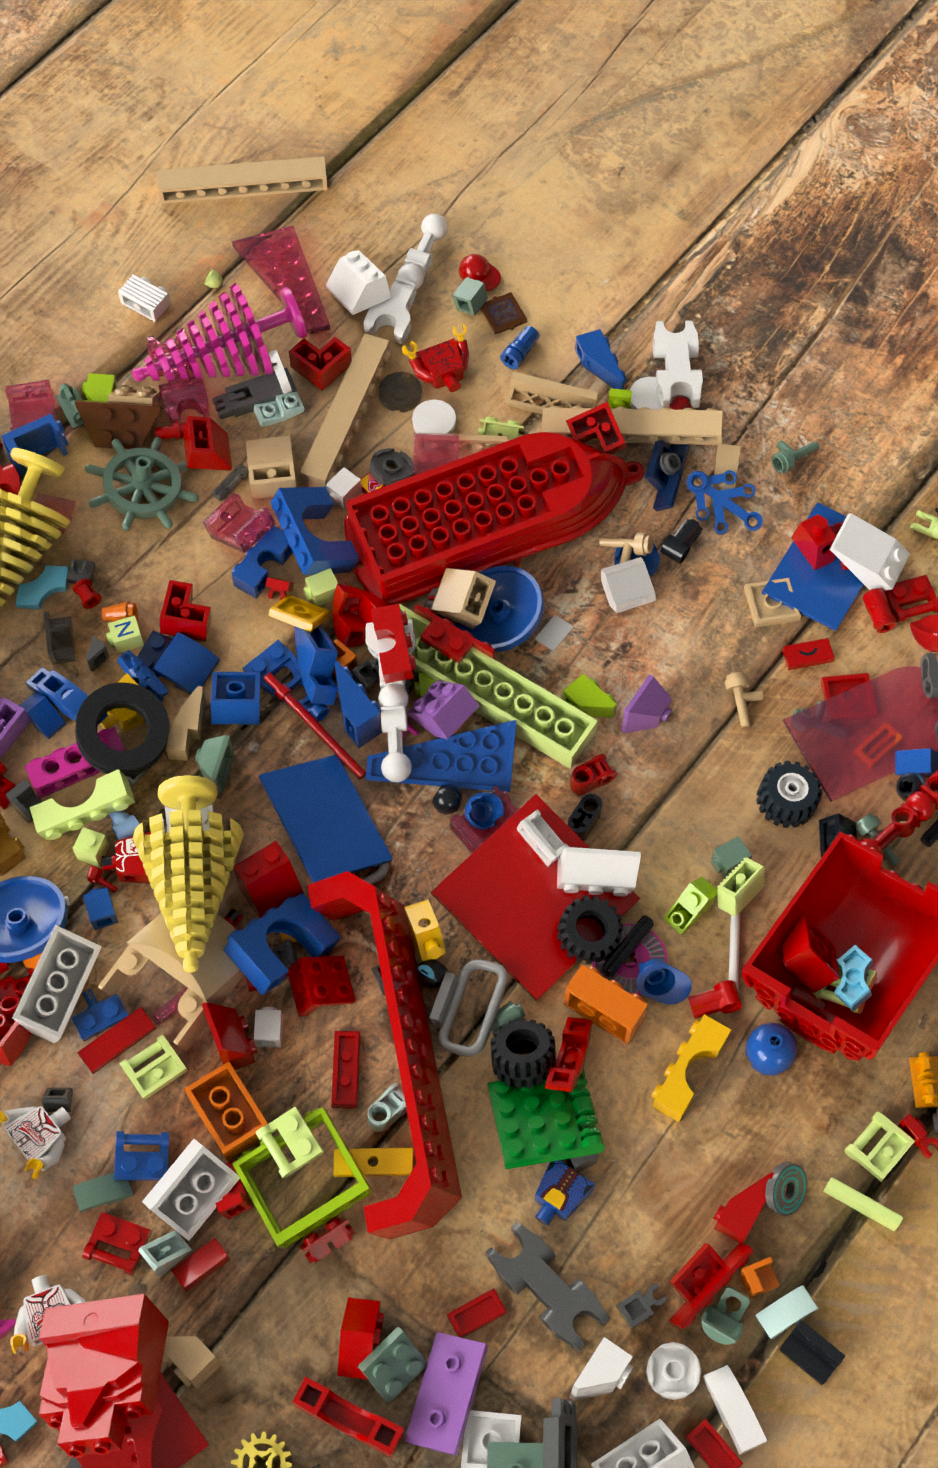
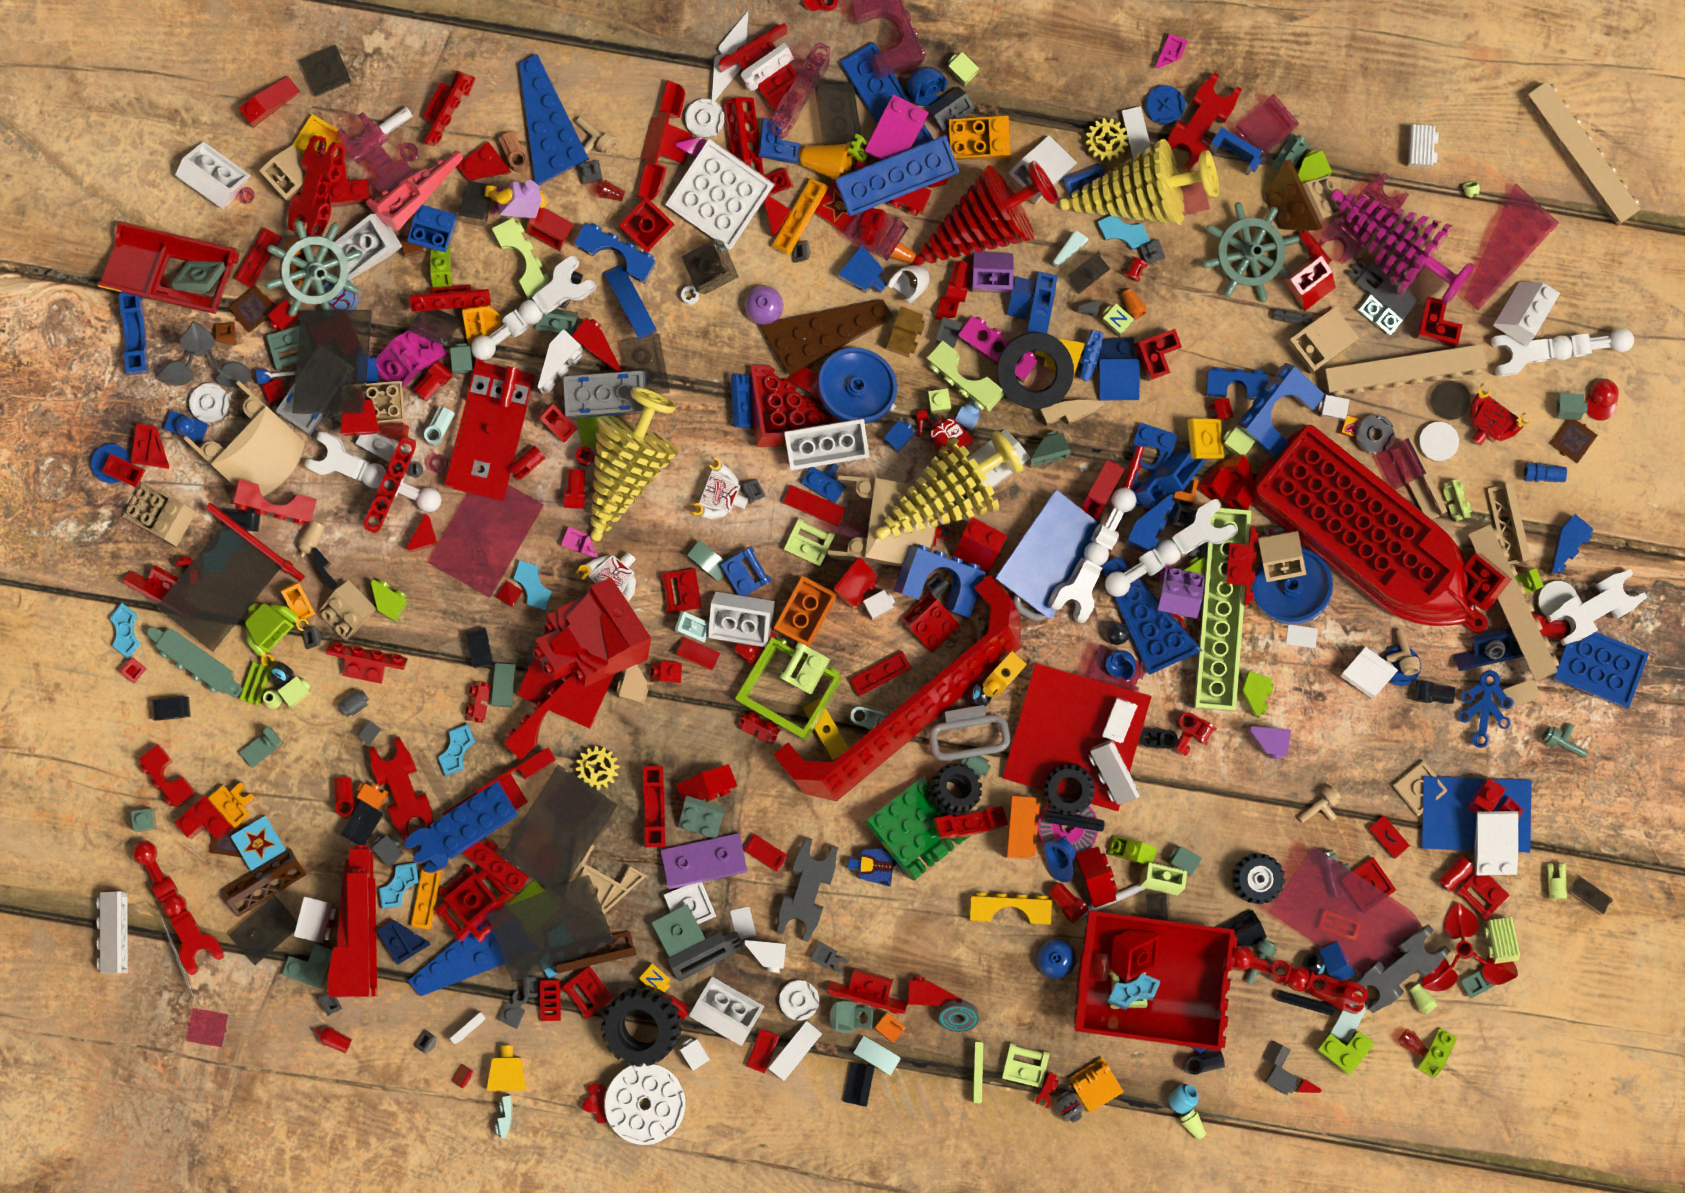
camera: 60 degrees right, 20 degrees up
(22, 635) = (1074, 243): none -> light aqua slope
(197, 1314) = (665, 672): none -> red bracket
(235, 698) = (1111, 433): blue slope -> none
(238, 524) = (1255, 349): clear pink panel -> none
(280, 372) = (1404, 301): white tile -> none
(288, 735) = (1102, 489): none -> red slope
(364, 791) = (1095, 554): none -> white piece
(397, 662) = (1220, 521): red arch -> none
(544, 1387) = (743, 922): none -> white sticker
(608, 799) = (1181, 746): none -> red arm
(703, 953) = (1097, 876): none -> red brick
(741, 388) = (1602, 668): none -> blue plate
(767, 907) = (1158, 906): none -> clear smoke hinge

